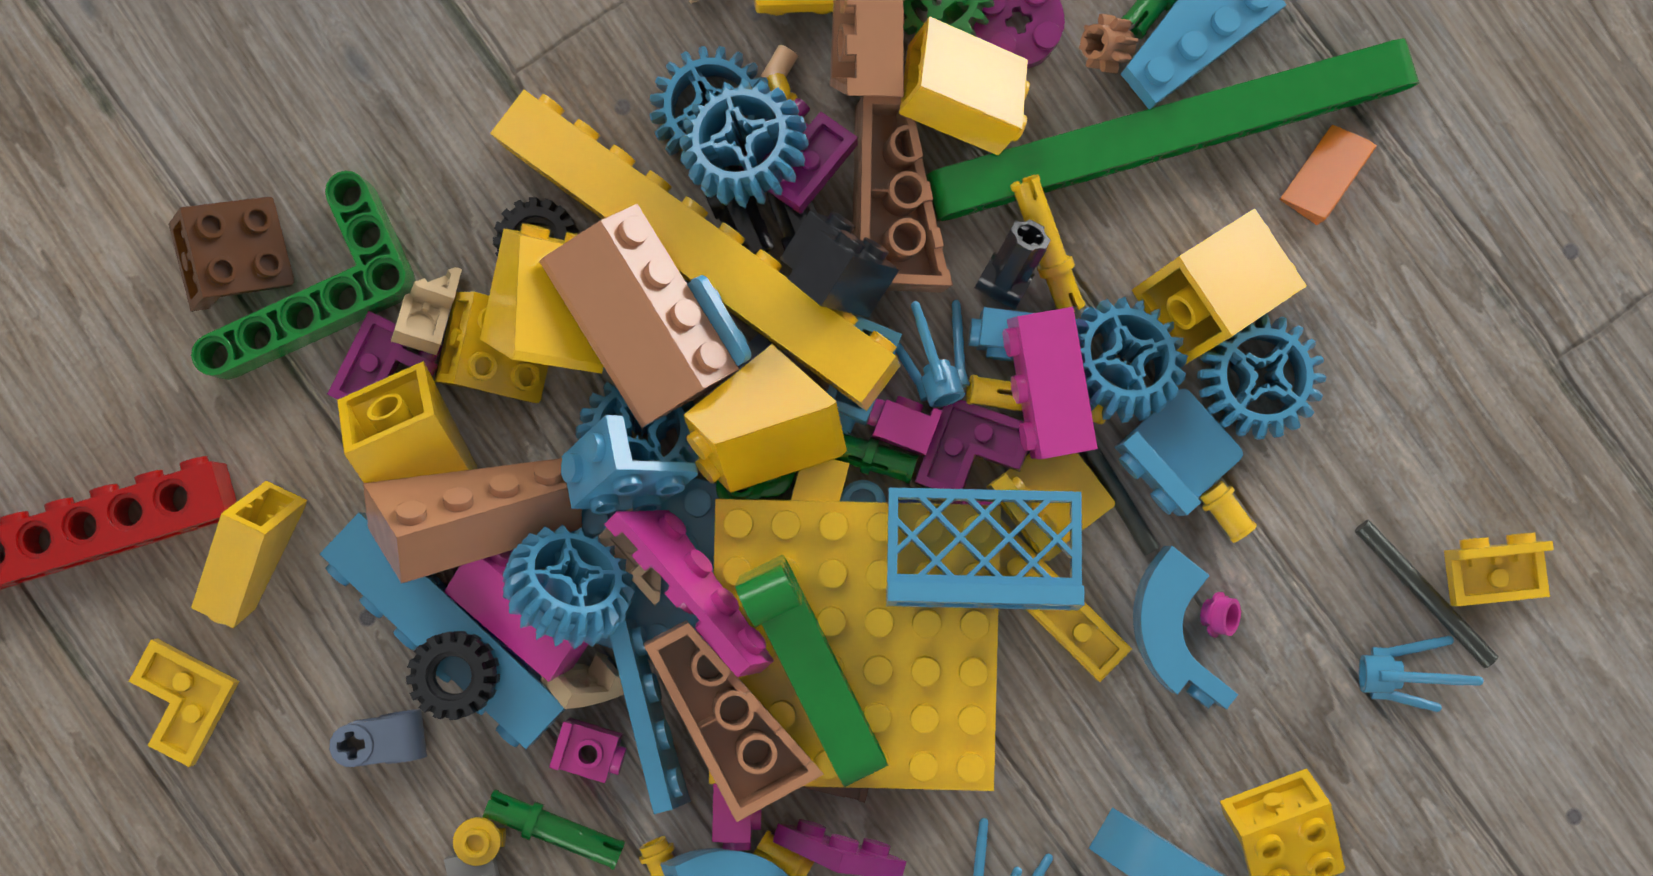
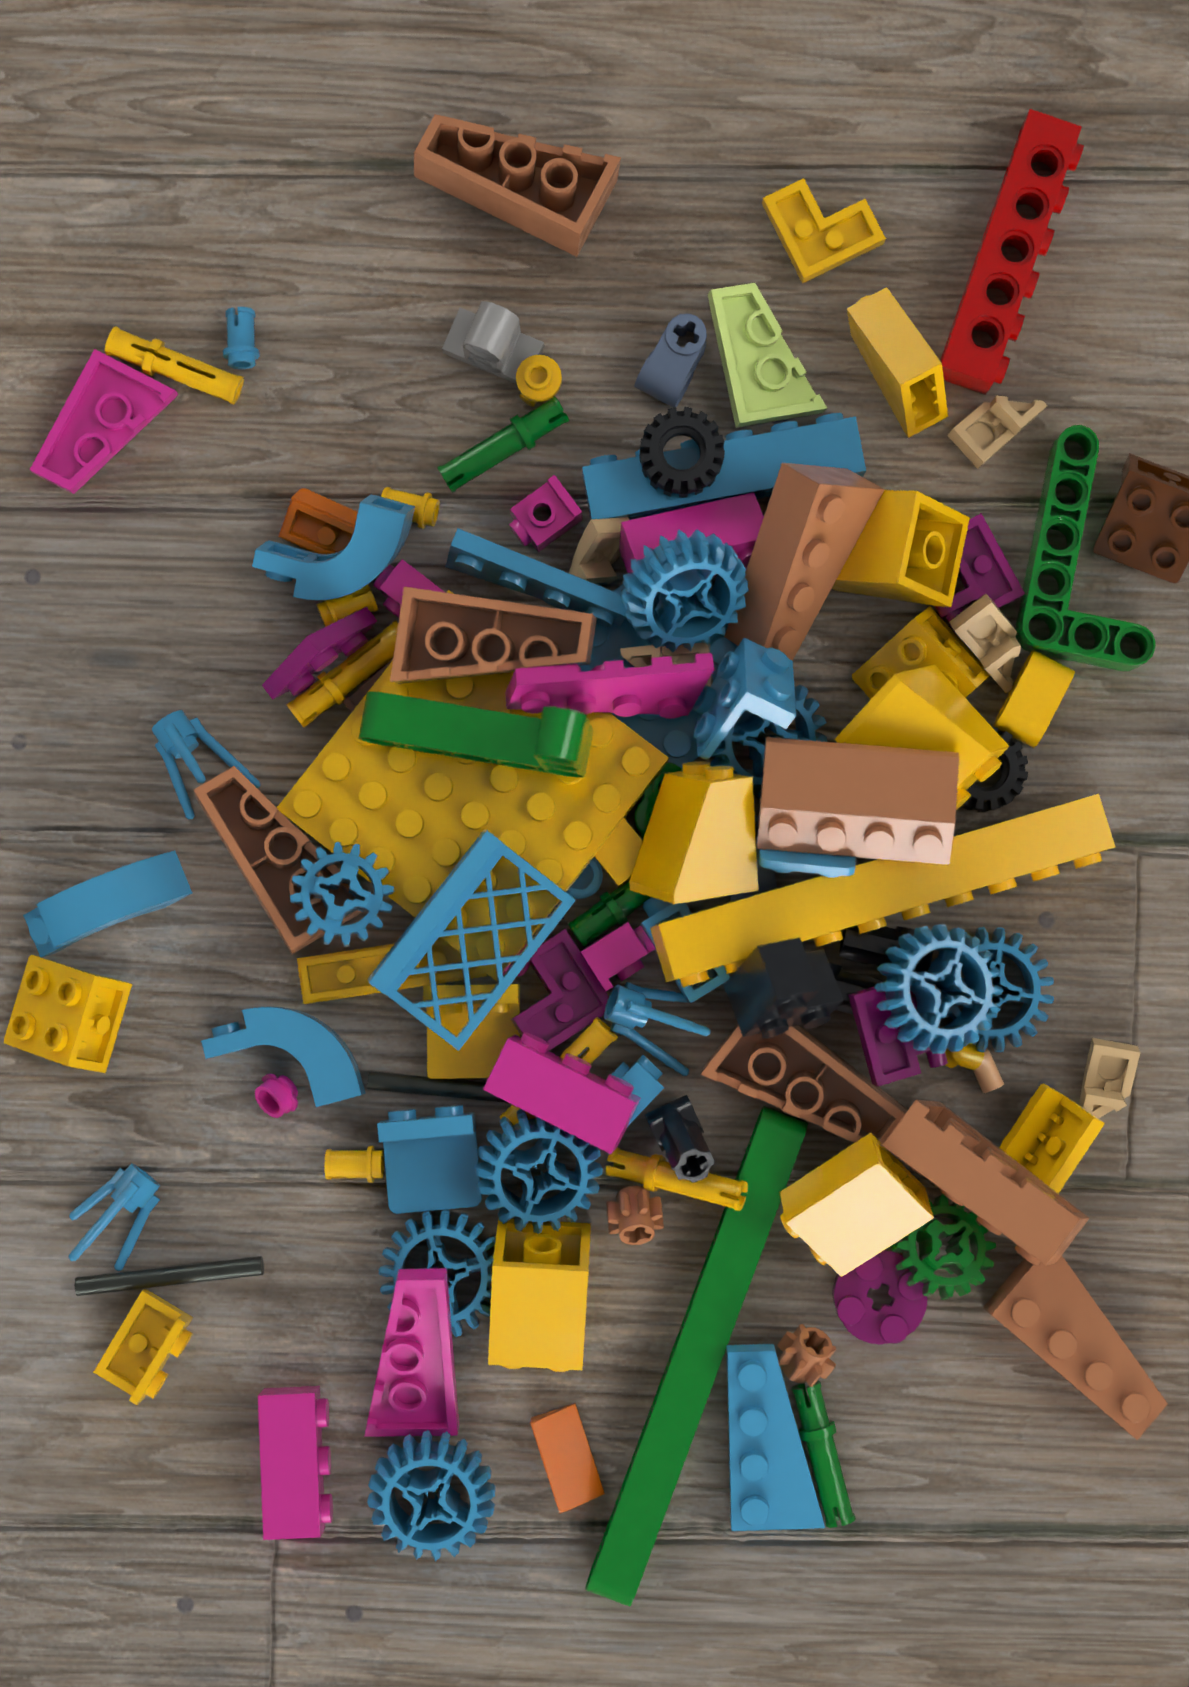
camera: 130 degrees right, 0 degrees up
(248, 437) = (993, 427): none -> tan slope
(337, 663) = (757, 363): none -> yellowish green wing
(450, 242) = (1034, 698): none -> yellow beam
(843, 815) = (345, 677): none -> yellow pin
(997, 692) = (363, 901): none -> dark azure gear
(1038, 745) = (267, 853): none -> nougat wedge
(1101, 257) = (635, 1215): none -> nougat gear
(1347, 343) = (416, 1363): none -> dark pink wing
(1451, 233) = (459, 1517): none -> dark azure gear
(1496, 383) = (293, 1462): none -> dark pink brick

